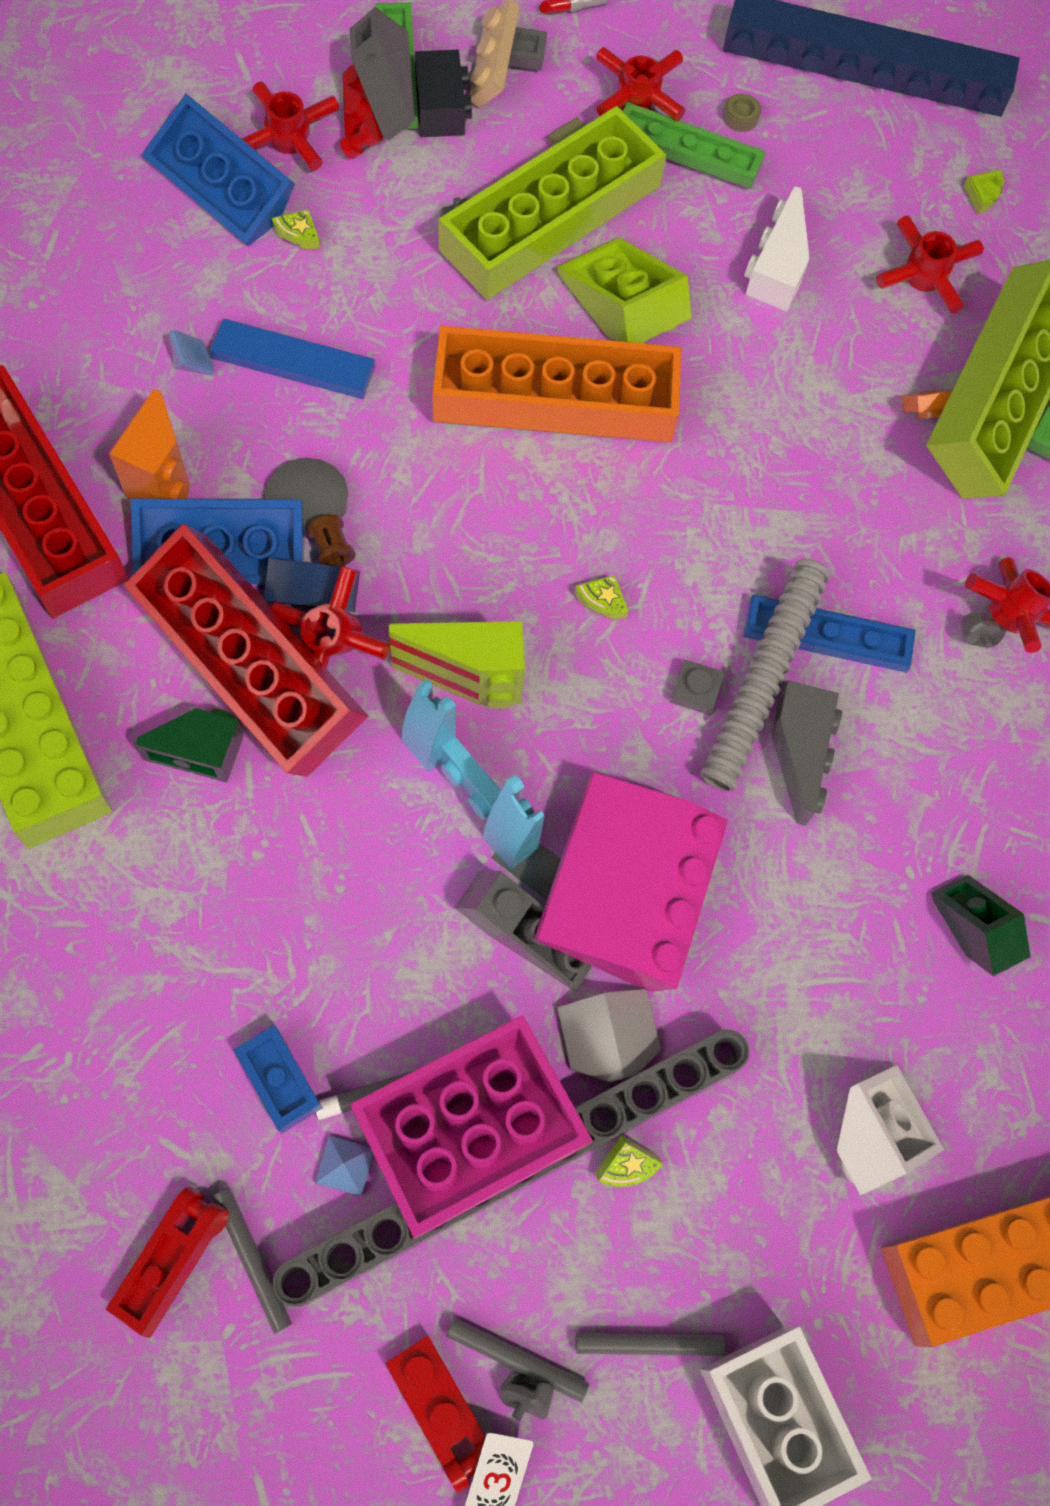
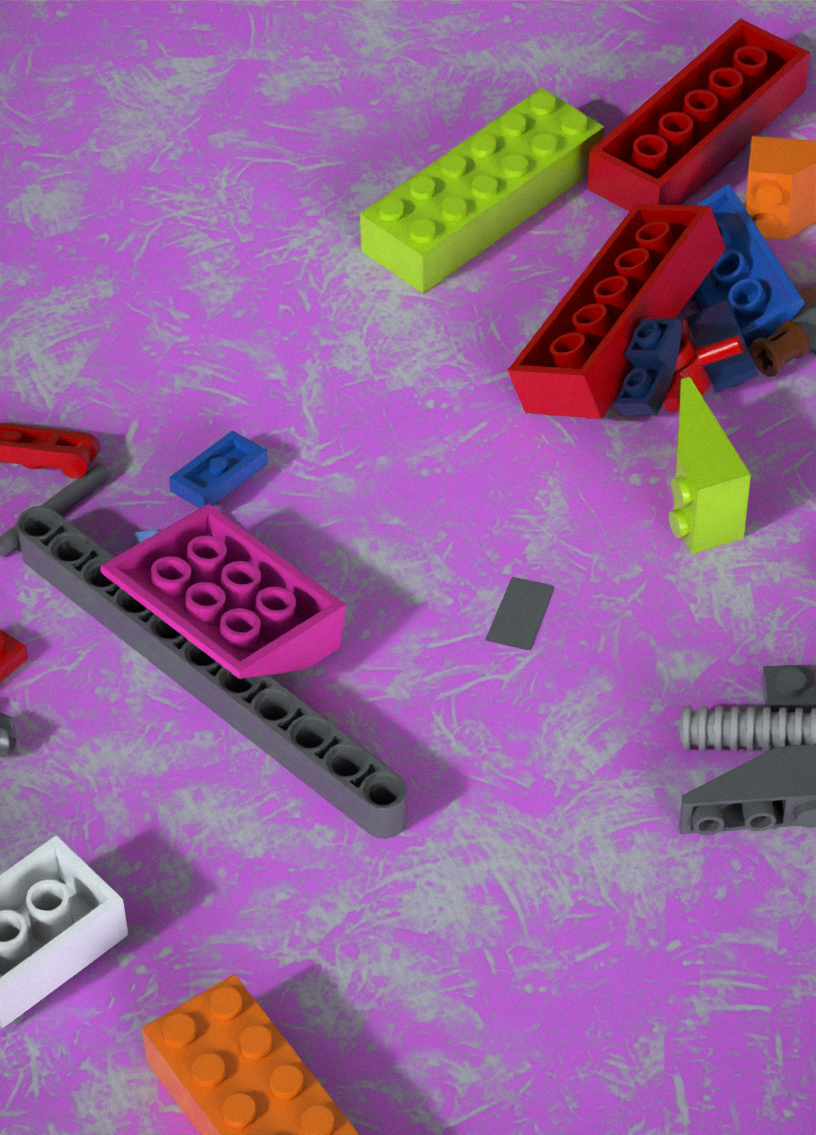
camera: 80 degrees right, 20 degrees down
(195, 743) = (512, 313): dark green slope -> none
(341, 650) = (653, 361): none -> dark blue slope
(432, 739) = (558, 541): medium azure wedge -> none
(512, 919) = (445, 610): dark grey slope -> none
(517, 1359) = (25, 725): dark grey bar -> none
(609, 1034) = (374, 712): light grey slope -> none
(627, 1164) = (241, 757): lime tile -> none
(632, 882) = (529, 668): dark pink slope -> none
(650, 1344) = (70, 812): dark grey bar -> none
(884, 1132) = (362, 962): white slope -> none
(983, 924) = (632, 1010): dark green slope -> none

